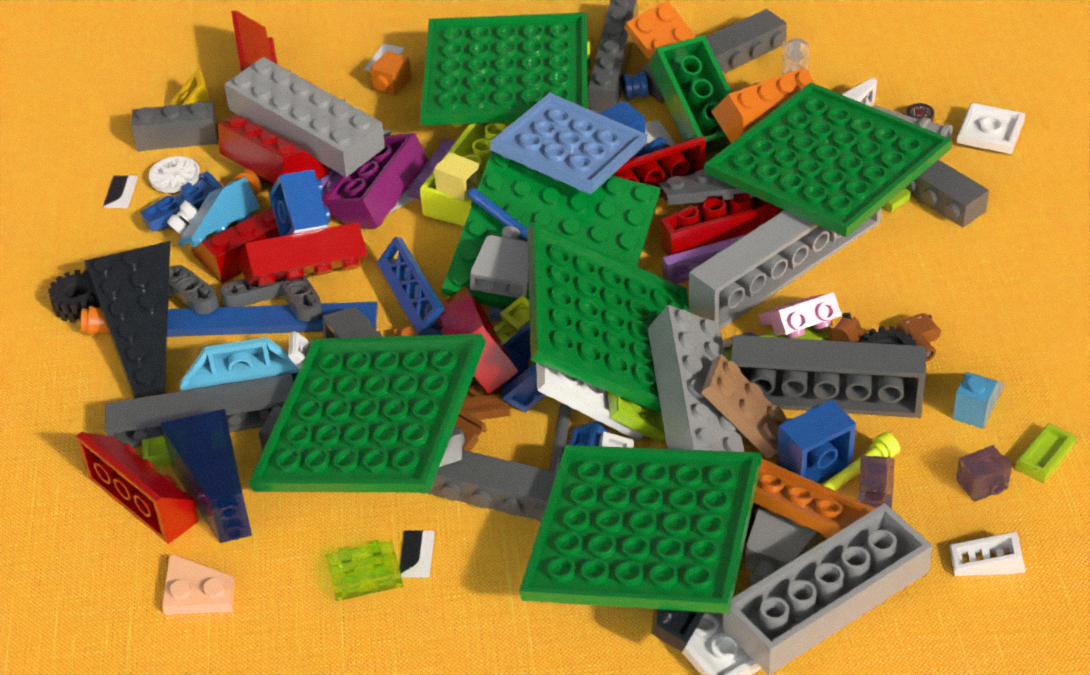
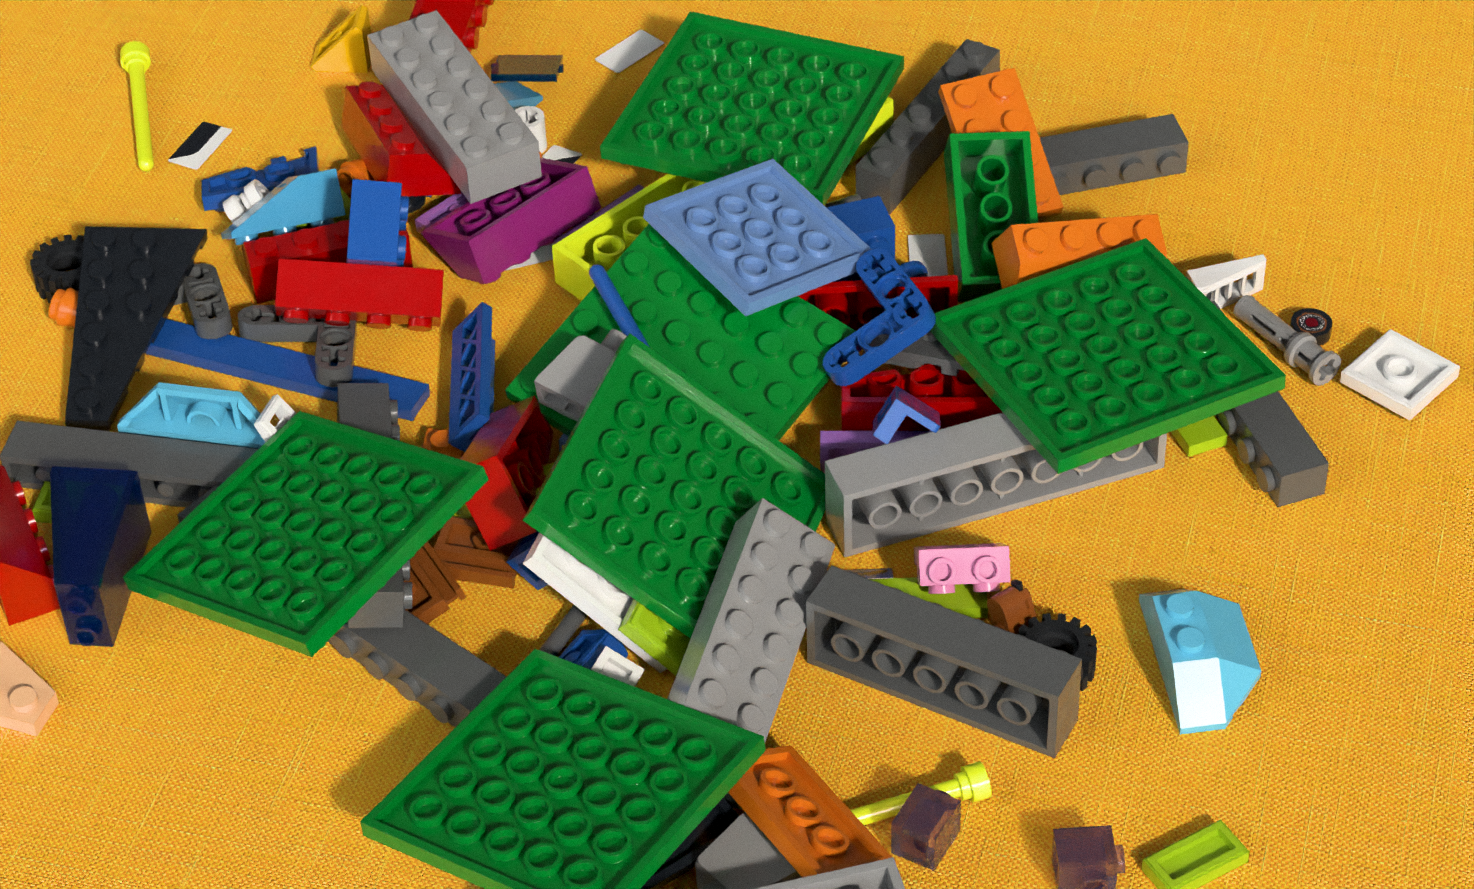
camera: 20 degrees right, 0 degrees up
(45, 147) = (136, 60): none -> neon yellow piece
(173, 173) = (274, 138): white wheel -> none
(174, 126) = (302, 73): dark grey brick -> none
(332, 82) = (527, 68): none -> piece
(364, 570) = (215, 734): clear neon green plate -> none
(390, 73) = (618, 73): orange brick -> none
(417, 553) = (296, 734): sticker -> none
(456, 176) = (599, 238): light yellow brick -> none
(634, 86) = (930, 178): blue wheel -> none
(682, 173) = (893, 321): none -> blue beam
(716, 230) = (895, 410): none -> panel
(743, 405) = (800, 668): medium nougat plate -> none
(795, 55) = (1175, 199): clear hips -> none
(817, 442) = (869, 749): blue brick -> none
(923, 332) = (1117, 638): dark orange piece -> none
(974, 328) = (1201, 656): none -> medium azure wedge
(976, 399) = (1141, 752): dark azure slope -> none

